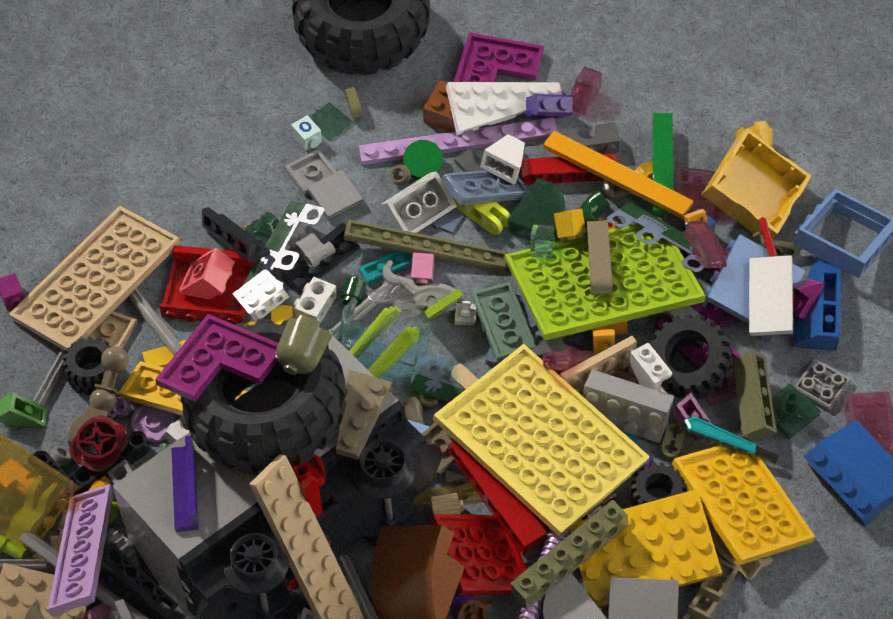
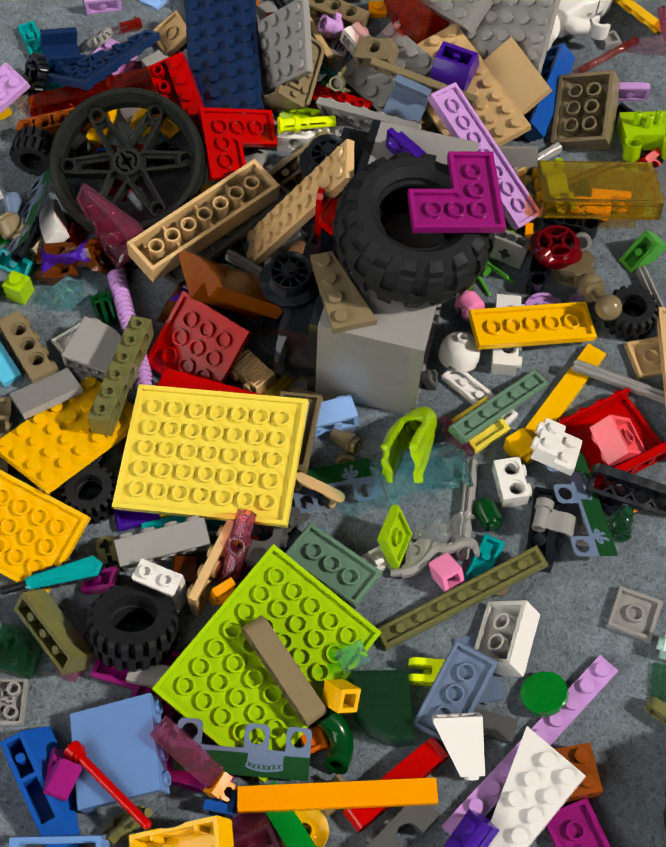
camera: 145 degrees right, 5 degrees up
(302, 345) = (395, 227): olive cylinder -> none
(335, 194) = (590, 599): light grey tile -> none
(395, 174) = (552, 663): dark tan plate -> none
(771, 296) = (88, 737): white tile -> none

